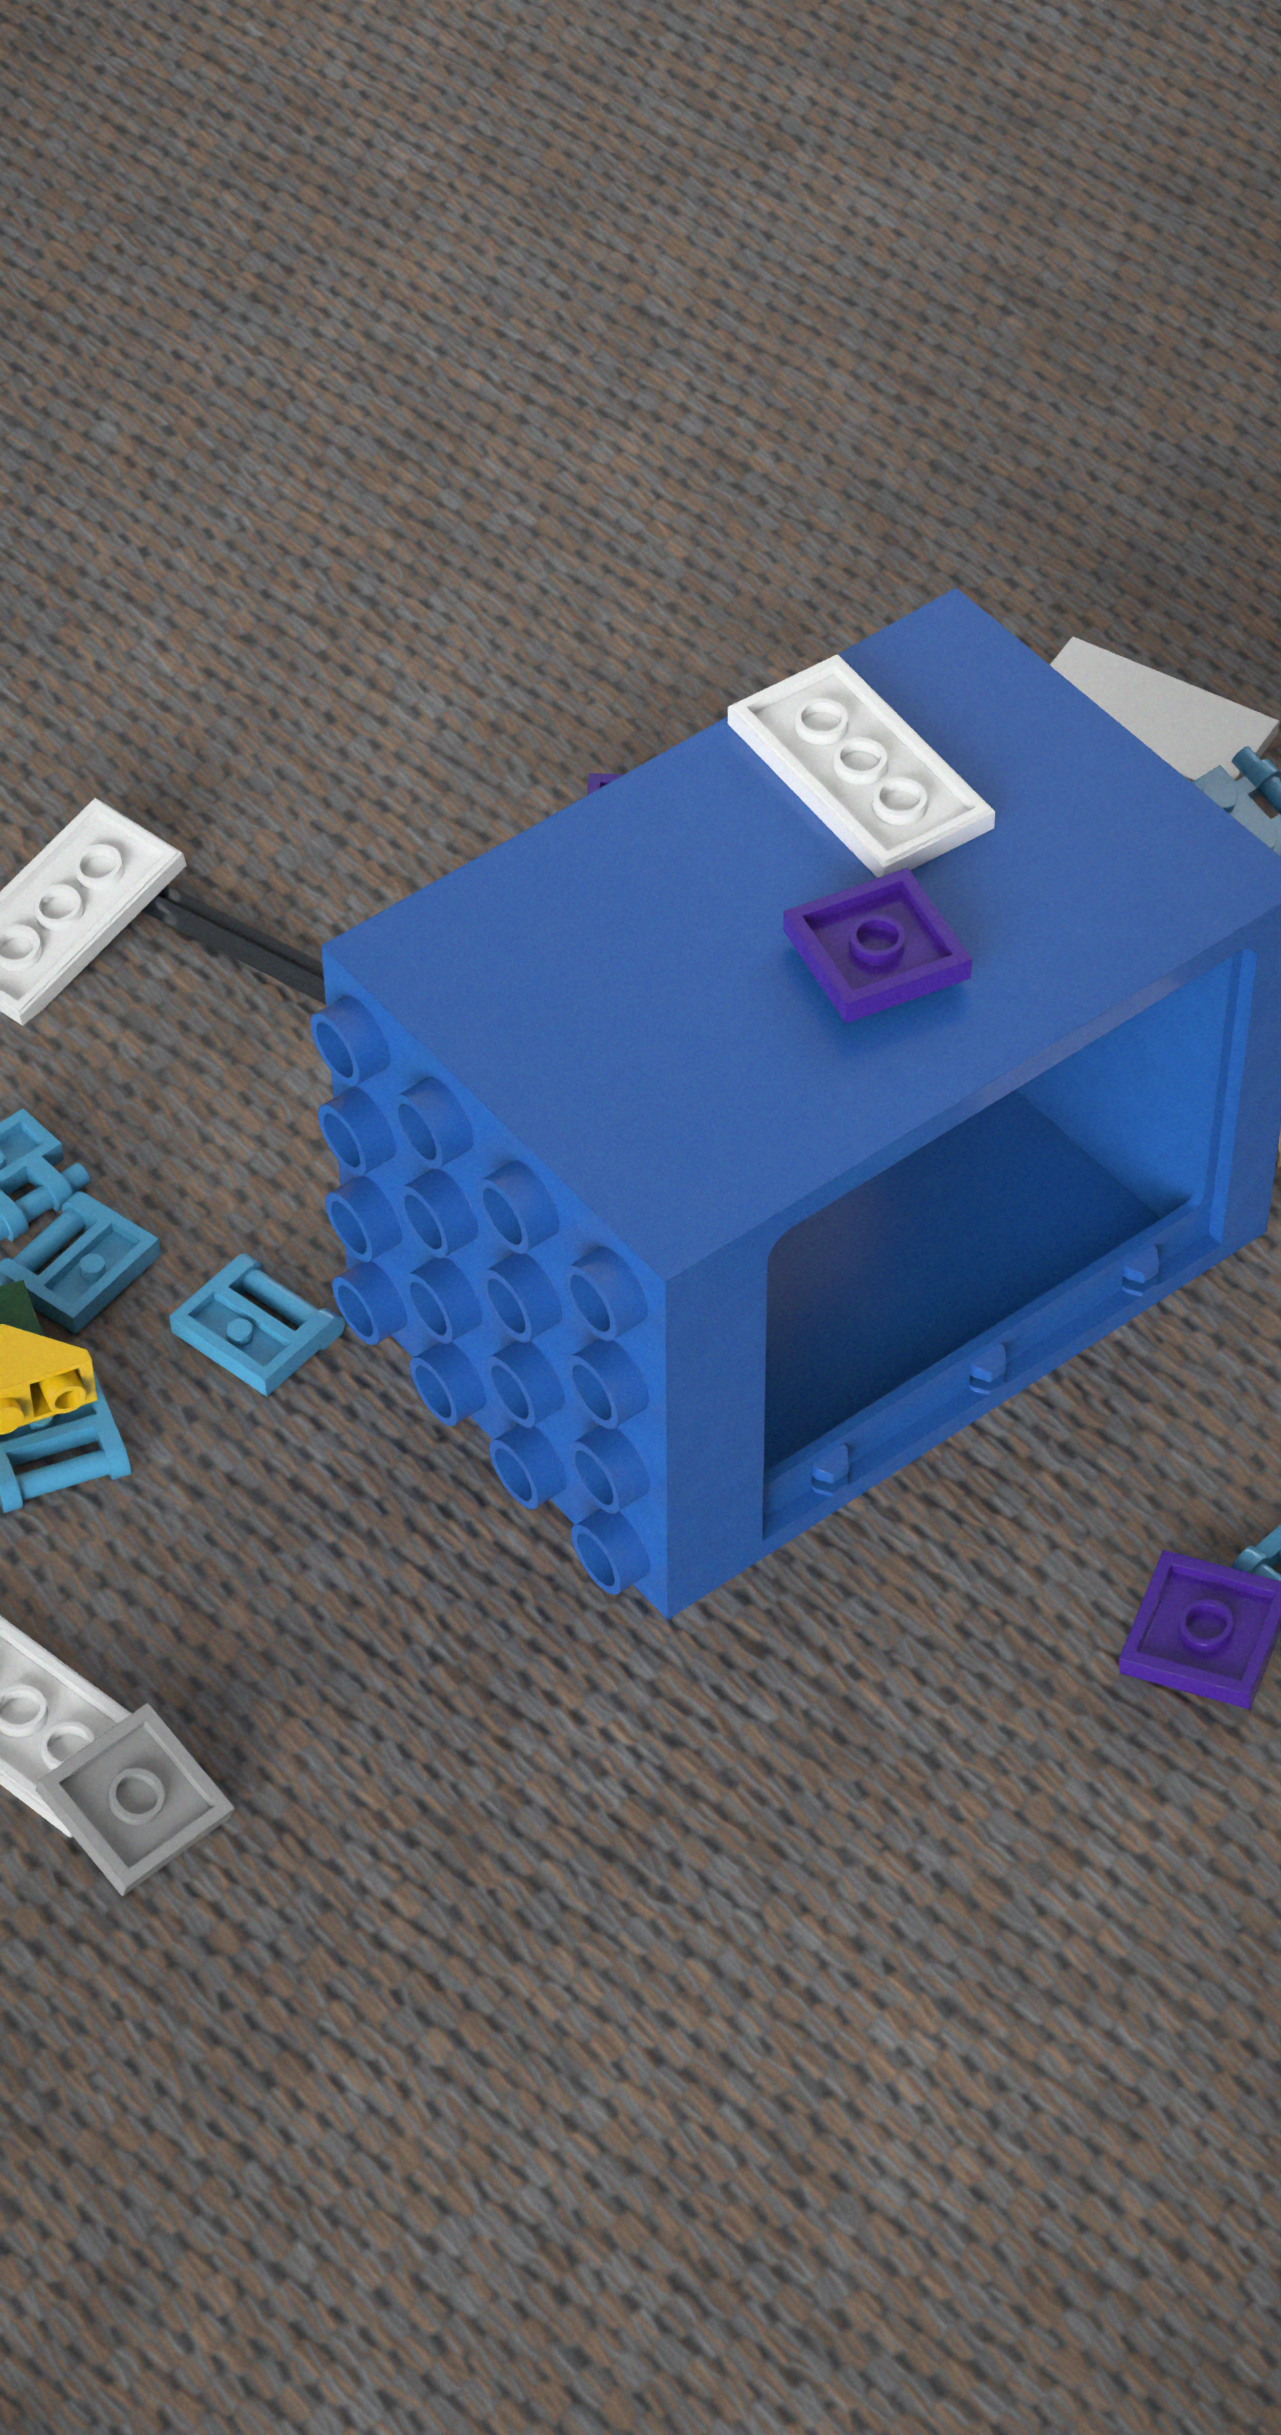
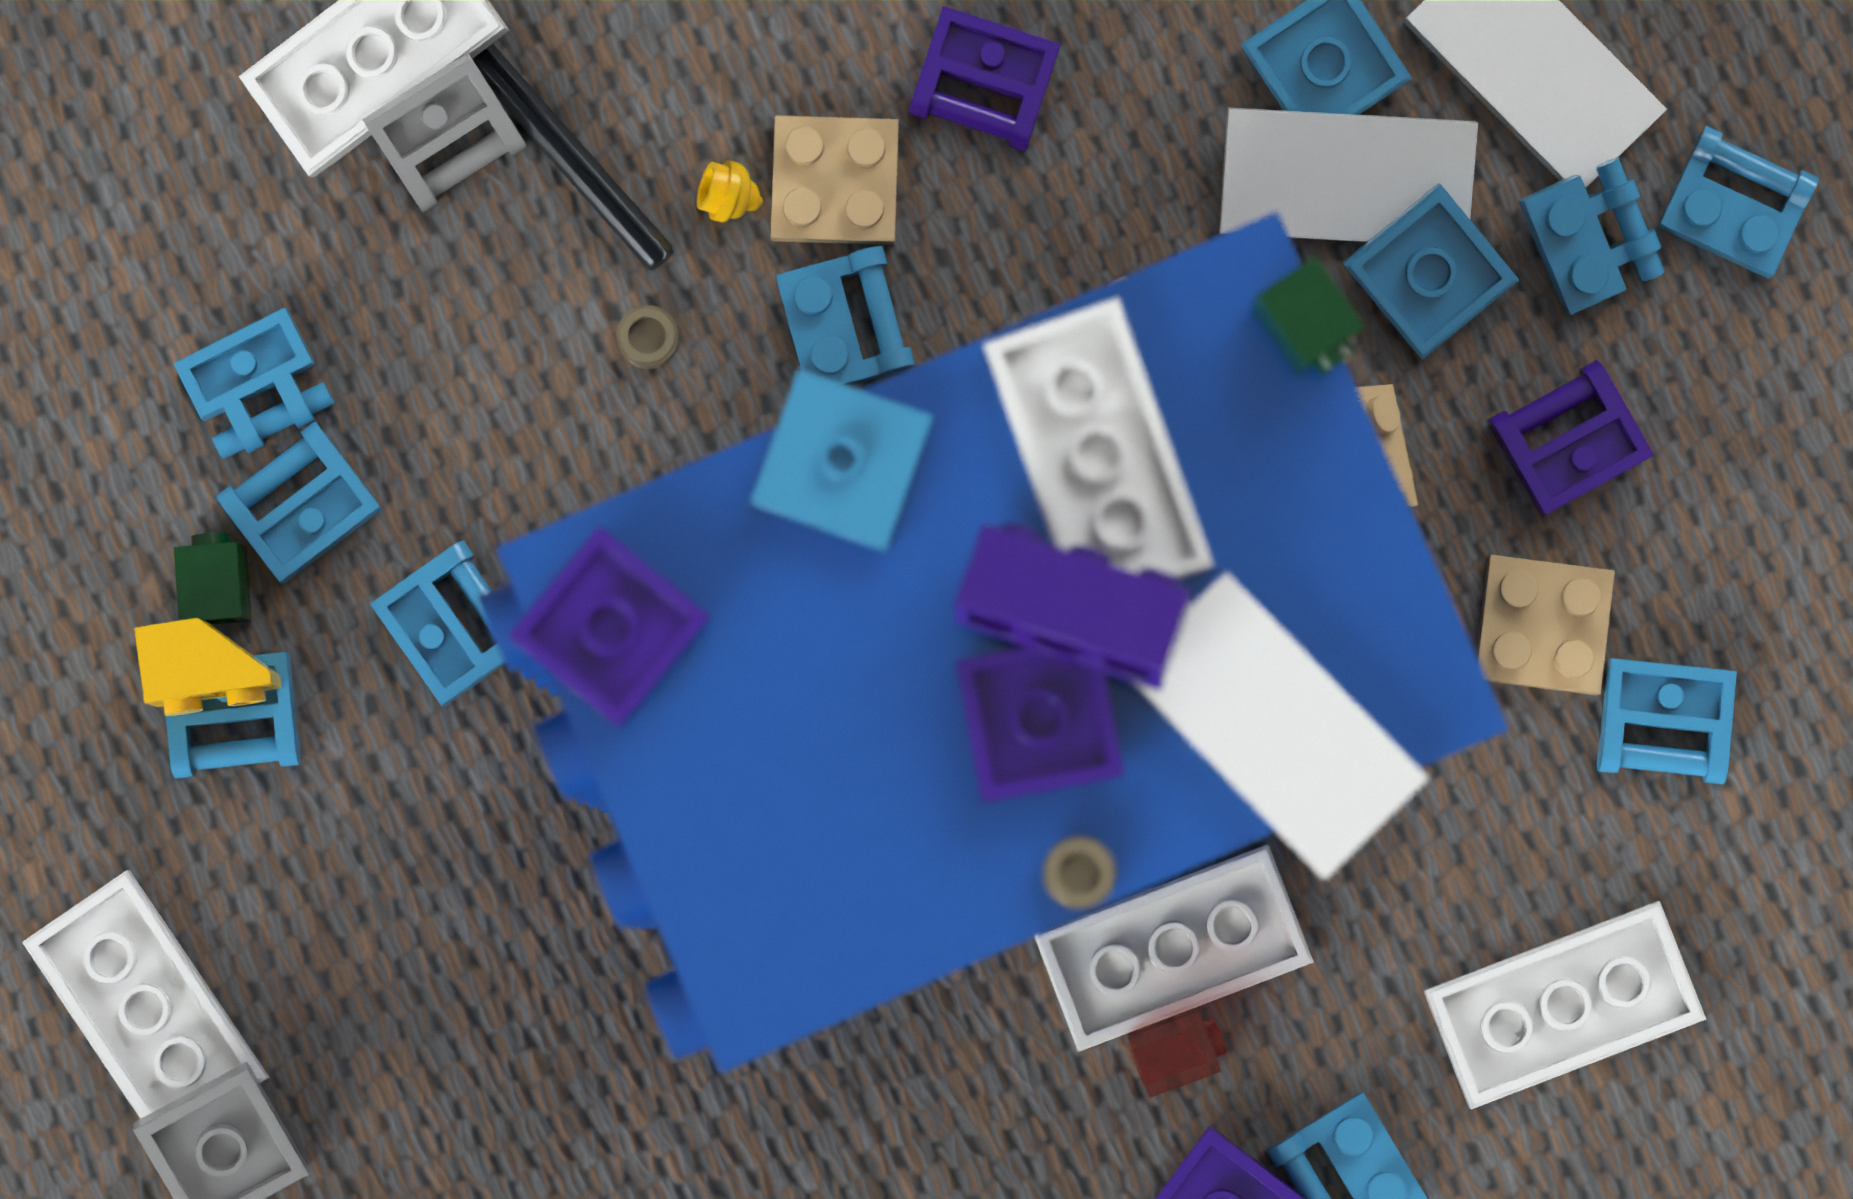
camera: 15 degrees right, 35 degrees up
(131, 935) = (436, 116): none -> light grey plate
(449, 961) = (609, 627): none -> dark purple plate
(626, 814) = (842, 460): none -> dark azure plate
(877, 835) = (1073, 604): none -> dark purple brick
(957, 1055) = (1079, 873): none -> dark tan tile
(1011, 628) = (1309, 319): none -> dark green brick
(1068, 1433) = (1173, 948): none -> white tile
(1097, 914) = (1281, 729): none -> white tile
(1103, 1504) = (1176, 1052): none -> clear red brick

